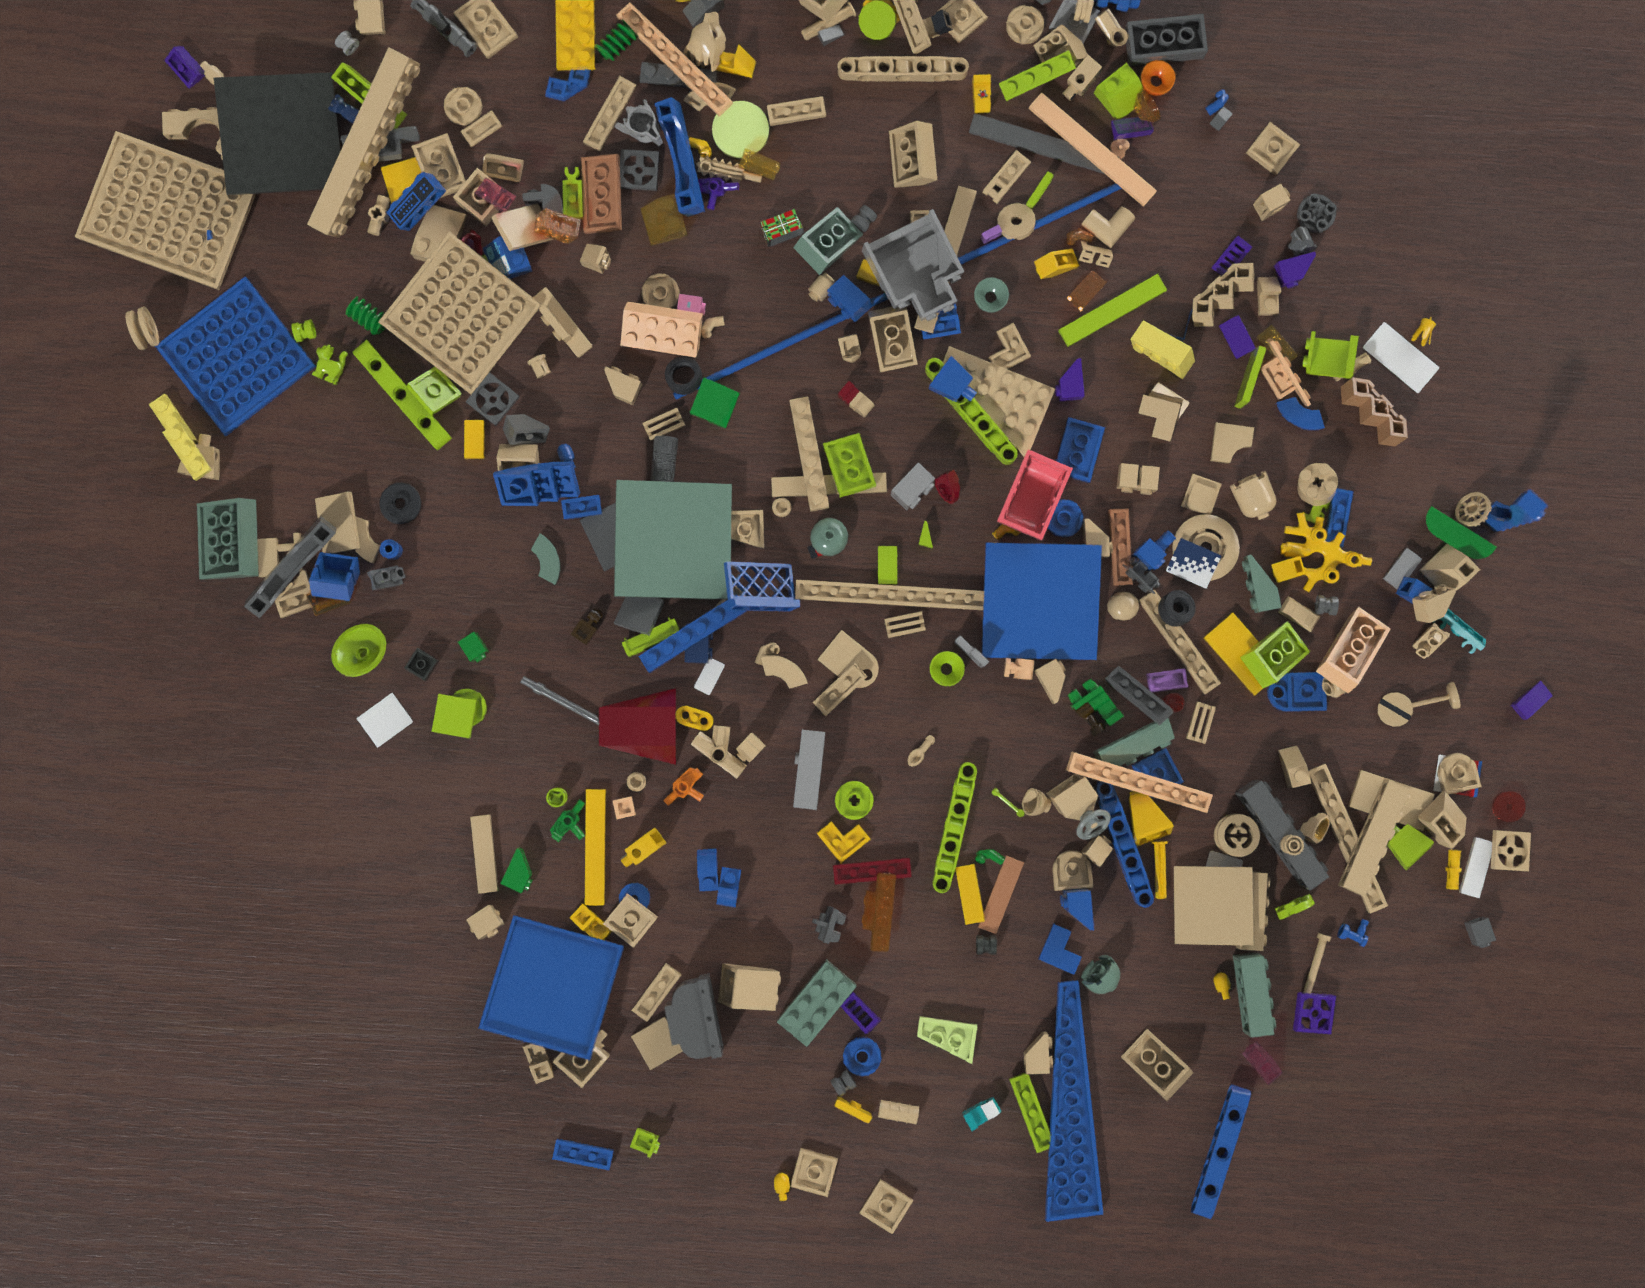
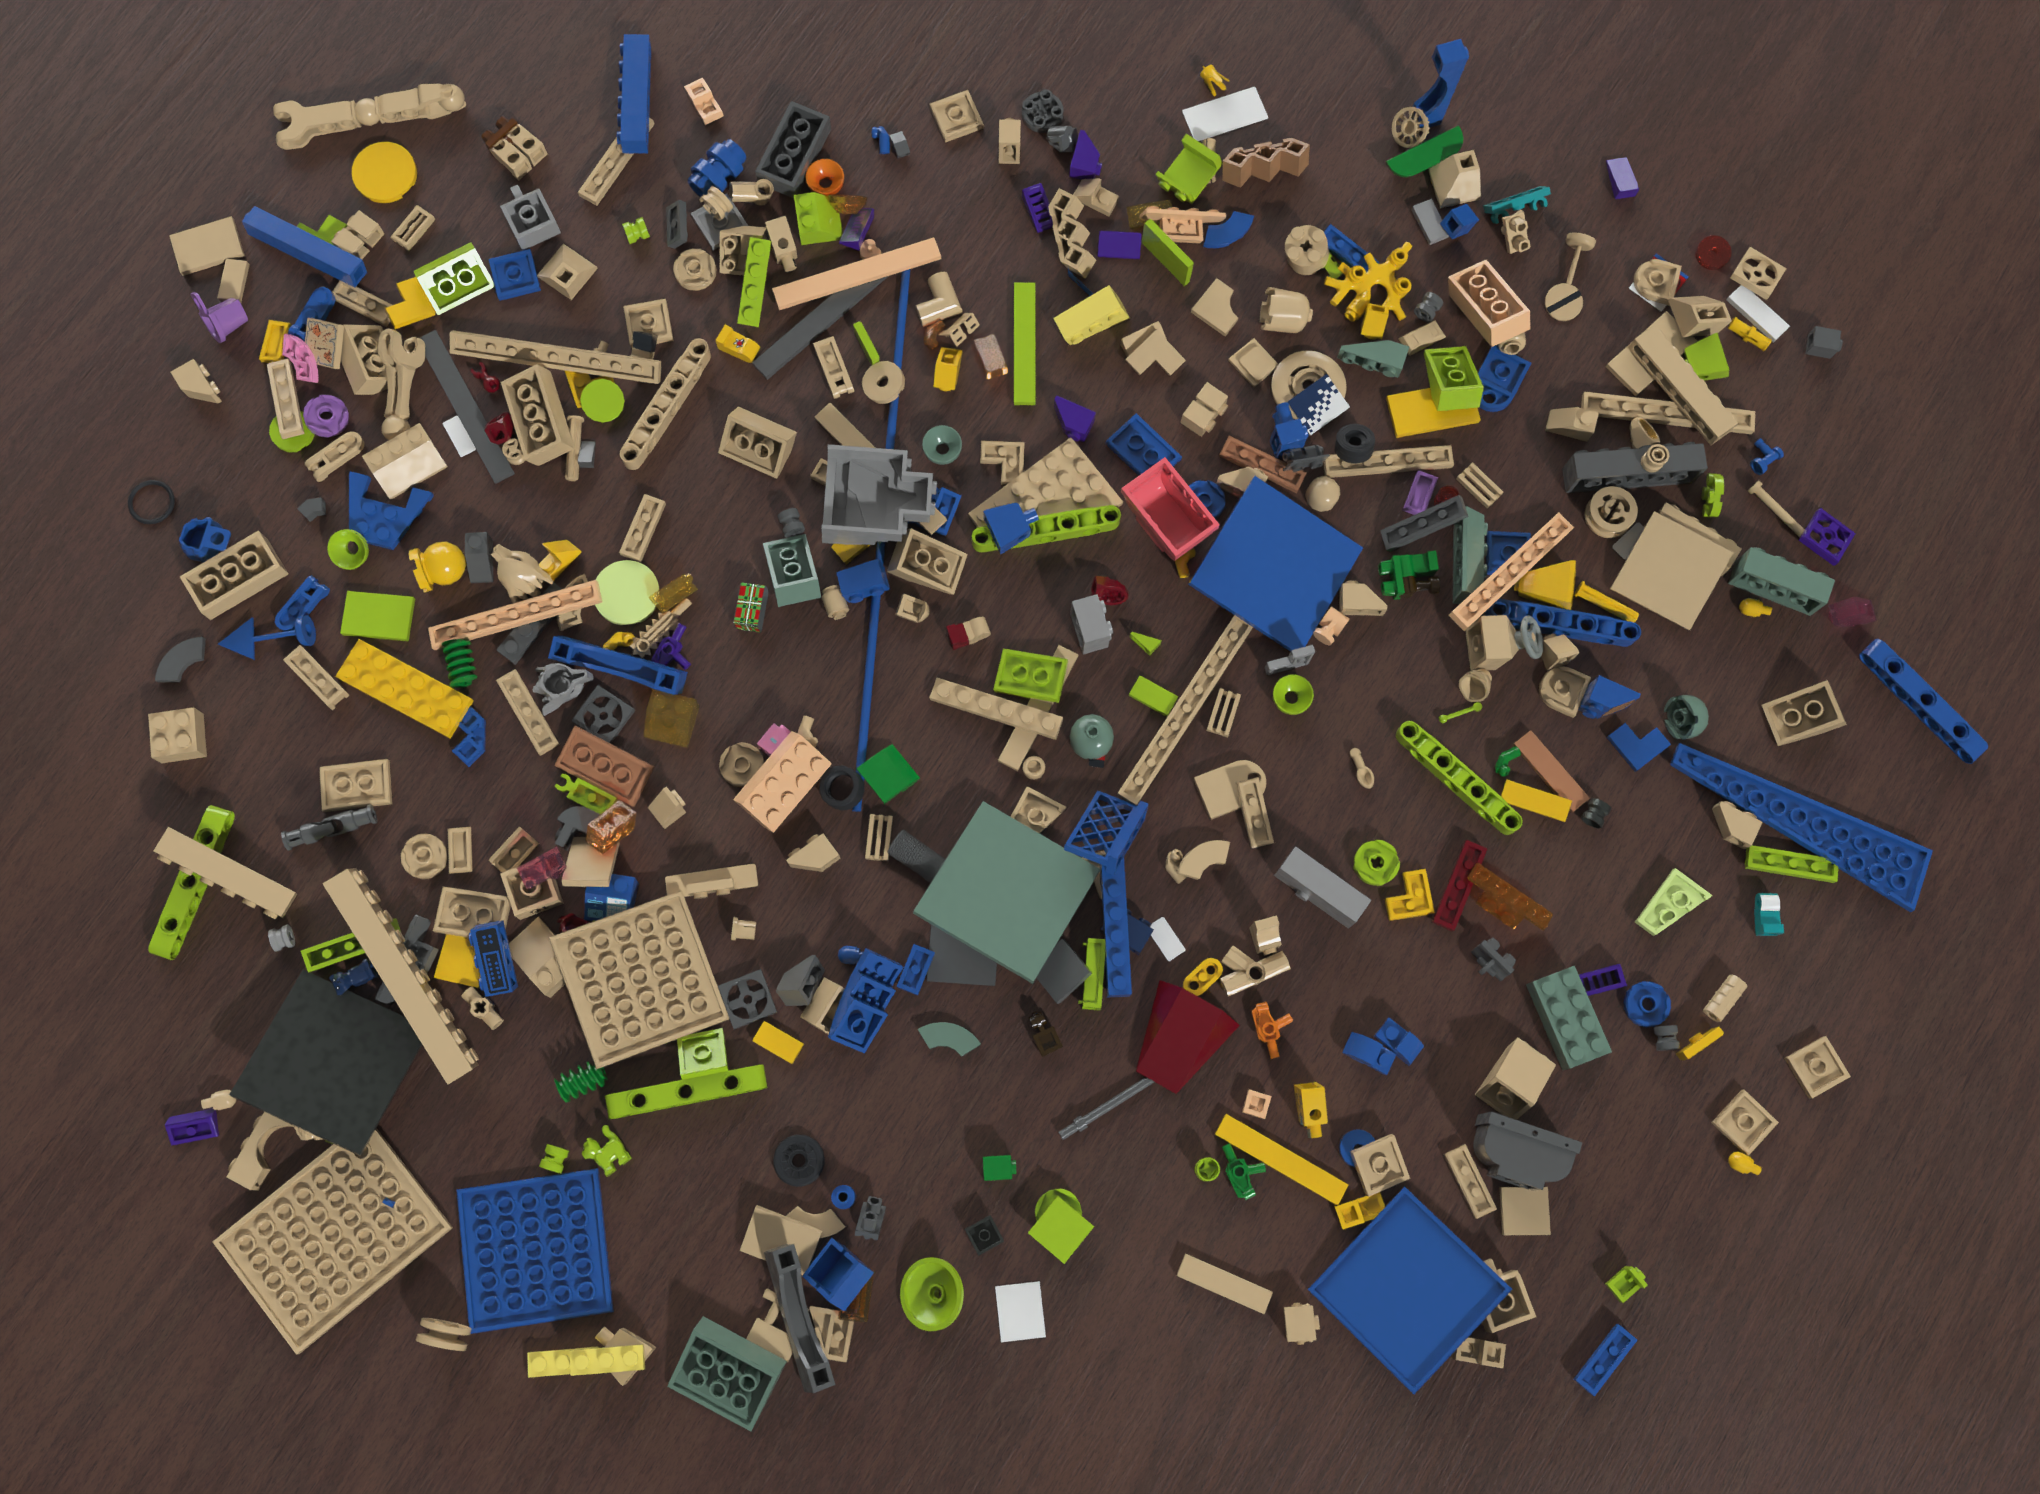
camera: 65 degrees left, 10 degrees down
(518, 873) = (1266, 1258): green slope -> none
(636, 781) = (1235, 1076): tan plate -> none
(991, 234) = (881, 412): medium lavender tile -> none
(1433, 604) = (1483, 208): tan slope -> none

